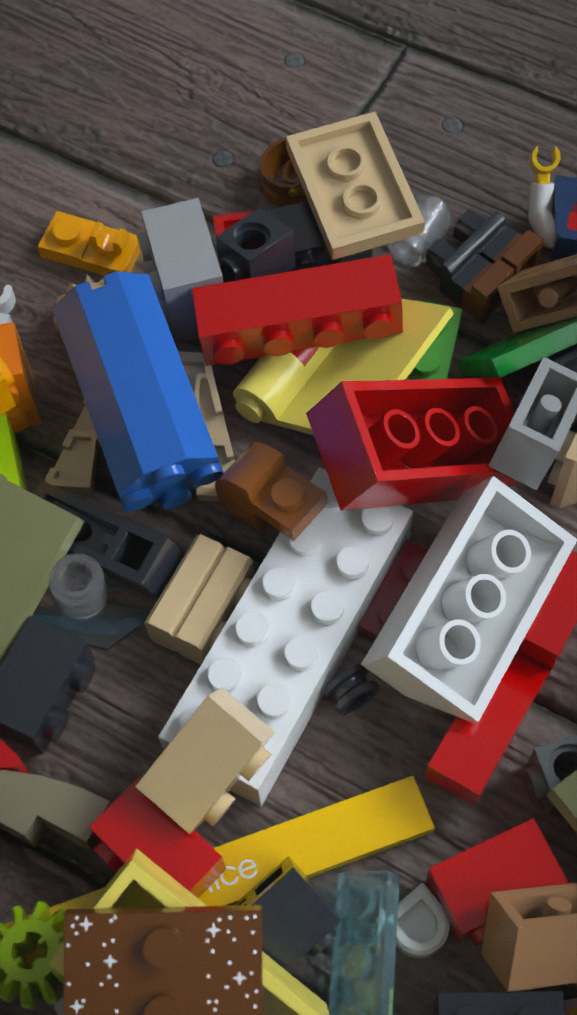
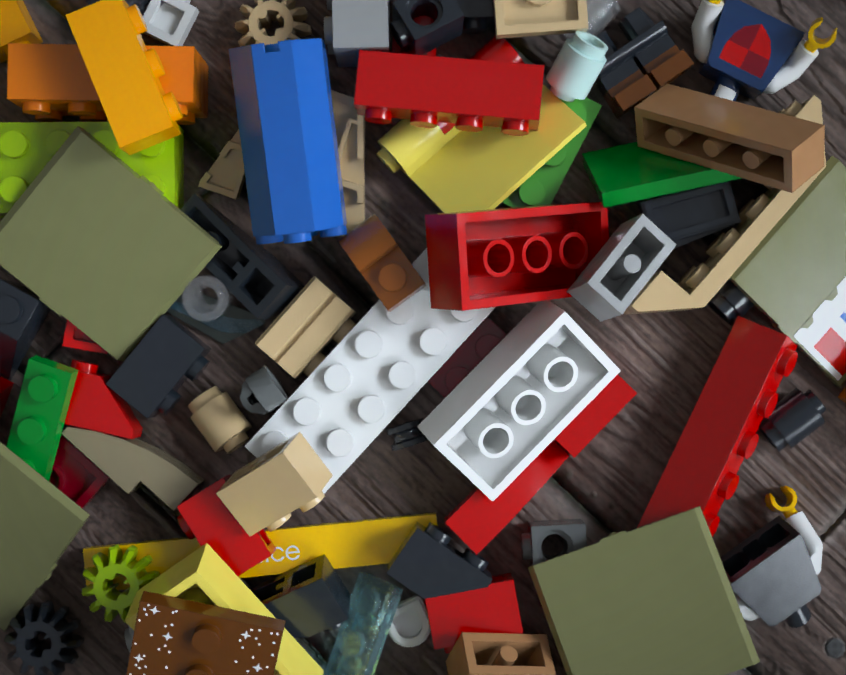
camera: 15 degrees right, 25 degrees up
(121, 729) = (219, 420): none -> tan brick
(167, 662) = (265, 388): none -> dark grey connector
(425, 265) = (577, 66): none -> light aqua brick
(430, 826) = (435, 567): none -> black slope

